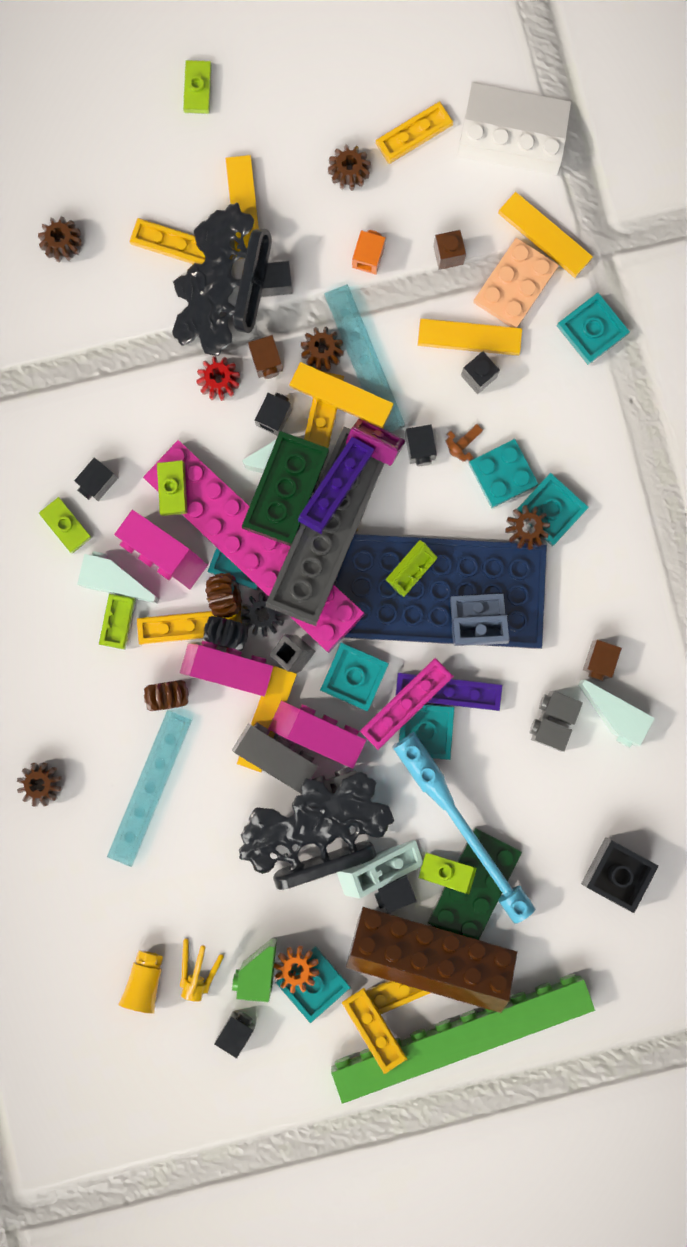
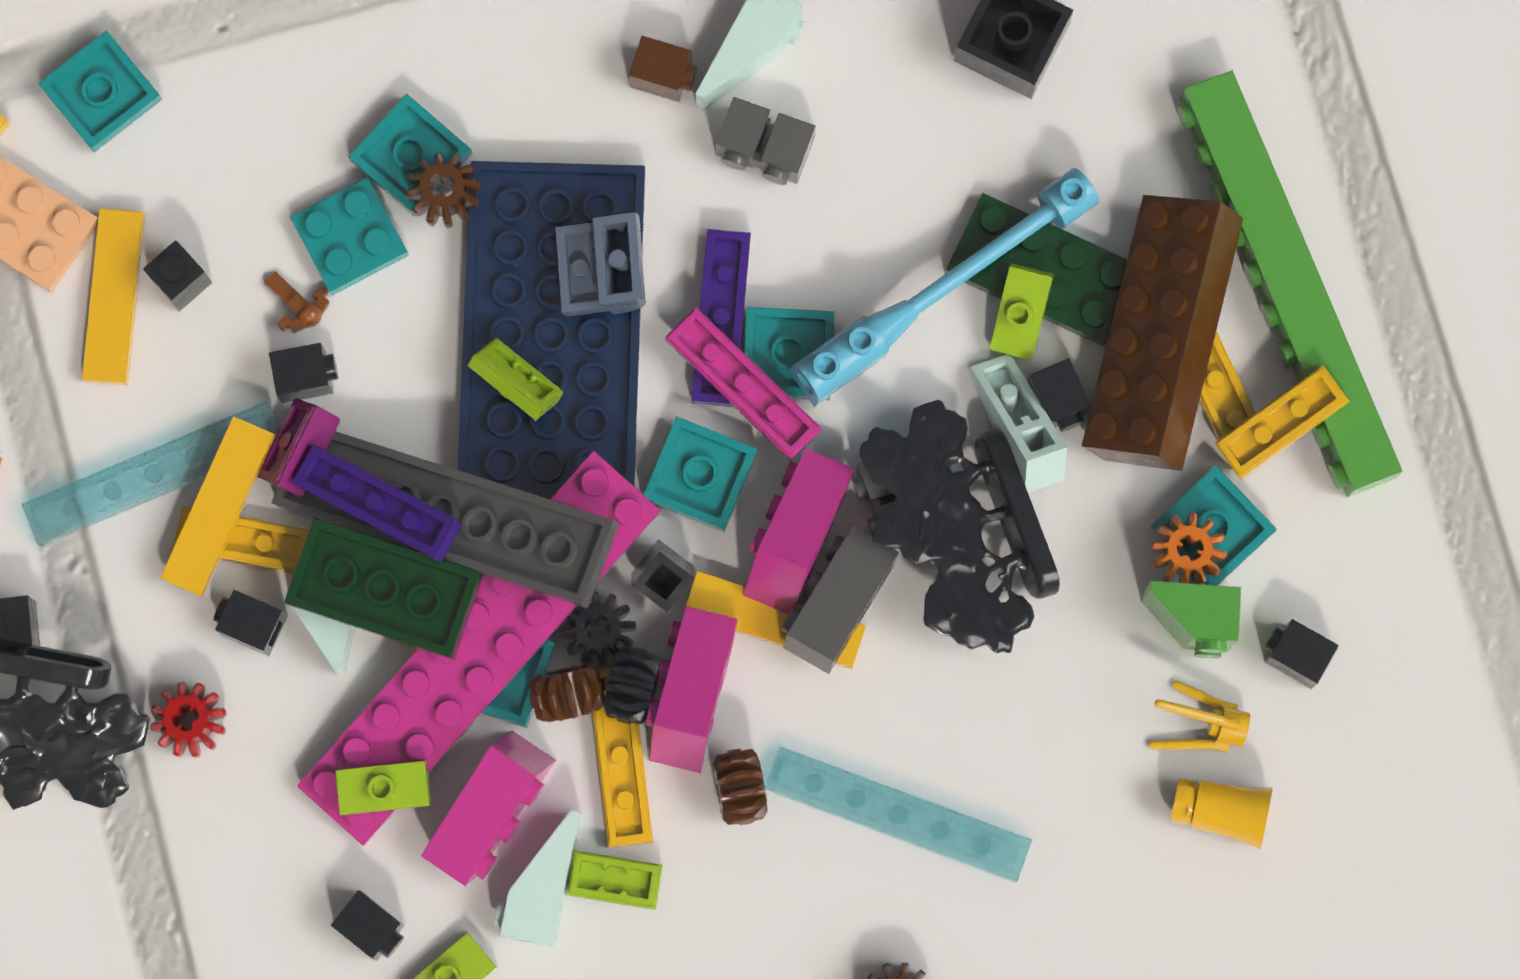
camera: 90 degrees left, 5 degrees down
(265, 357) = (151, 639): reddish brown brick -> none
(331, 352) = (127, 531): reddish brown gear -> none

